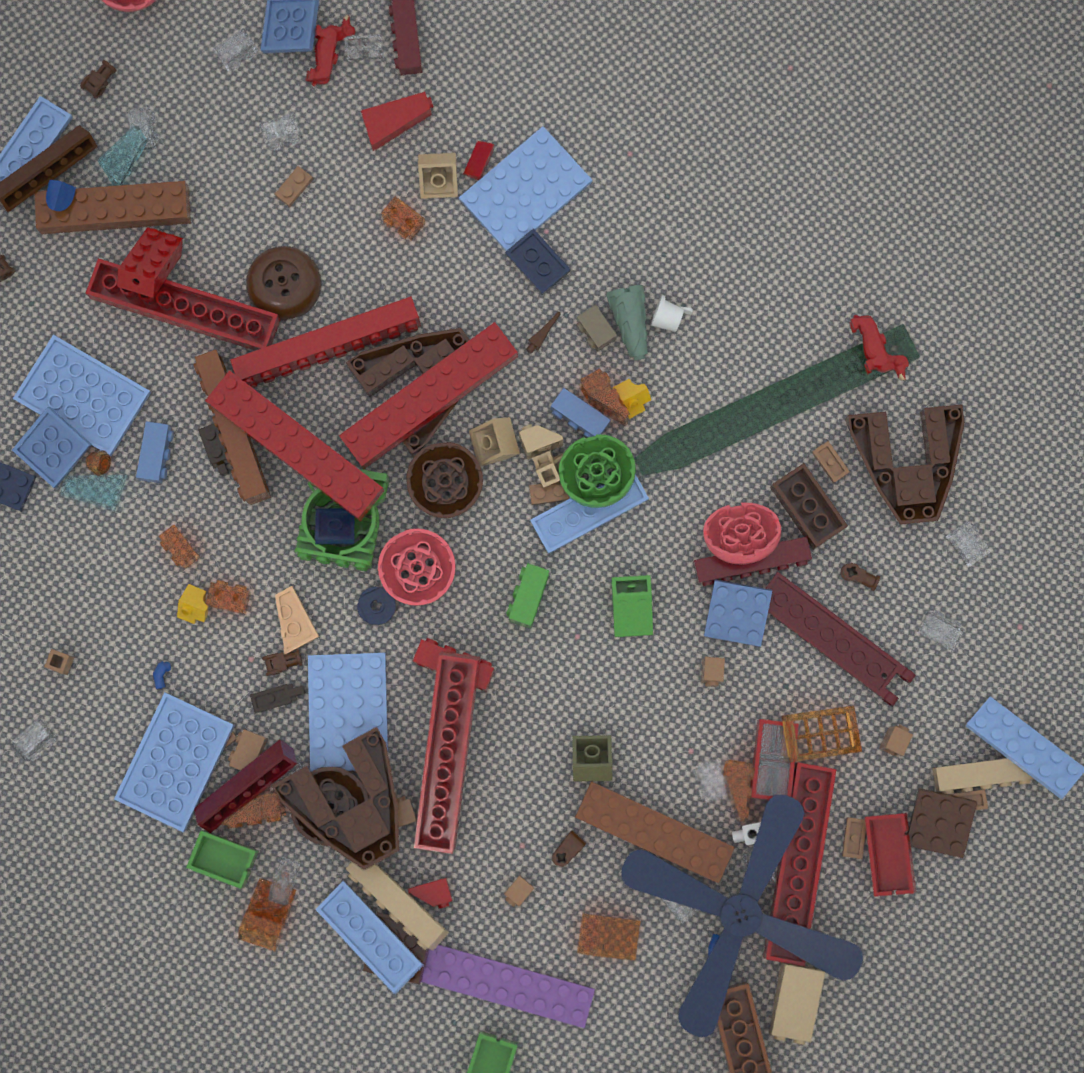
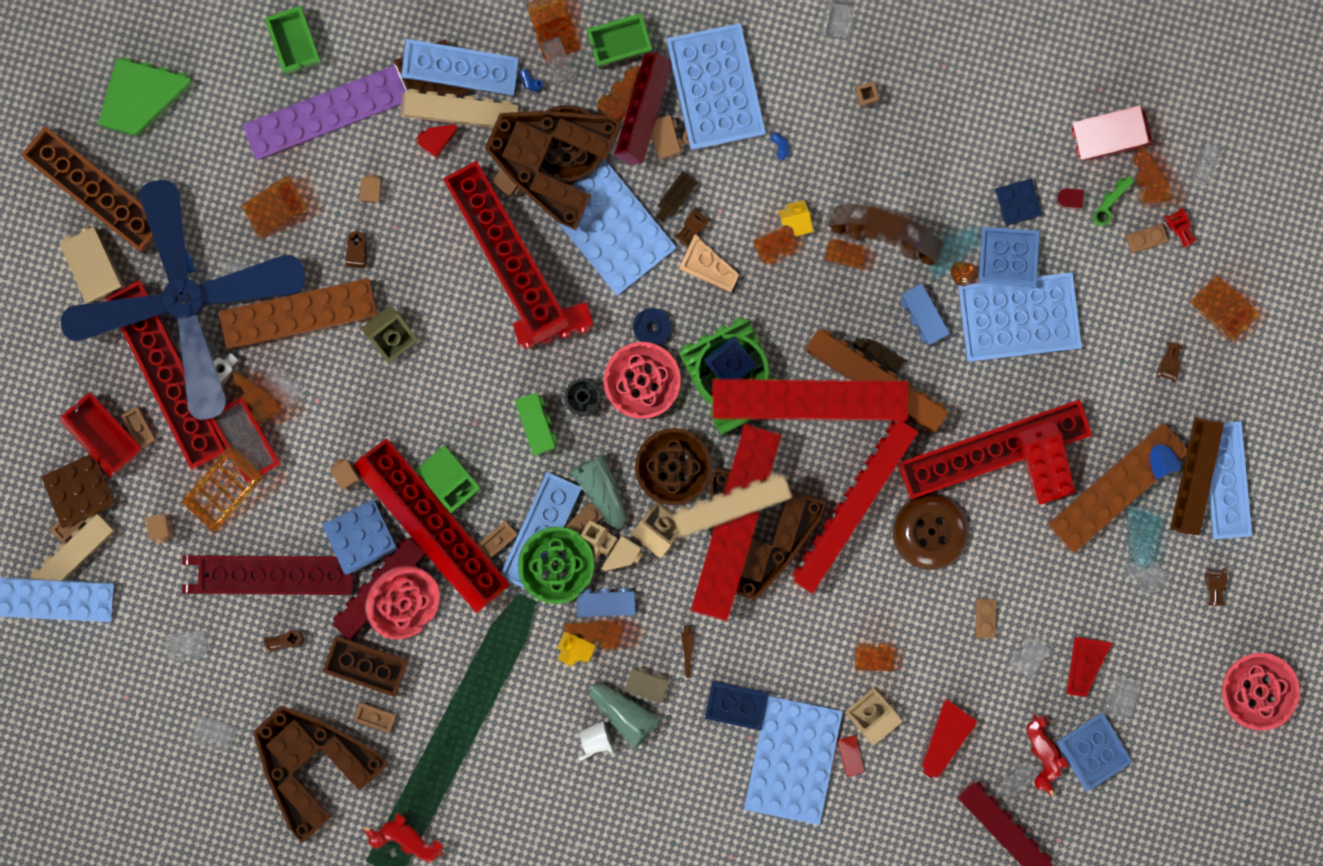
camera: 140 degrees right, 5 degrees up
(116, 521) = (875, 222): none -> reddish brown piece
(243, 97) = (1085, 662): none -> red wing
(322, 881) = (529, 83): none -> blue arm
(421, 406) = (731, 506): none -> tan brick
(474, 580) = (574, 390): none -> pearl dark grey brick
(515, 510) = (600, 487): none -> sand green cone
(629, 529) = (497, 540): none -> medium nougat plate
(673, 578) = (431, 525): none -> red brick

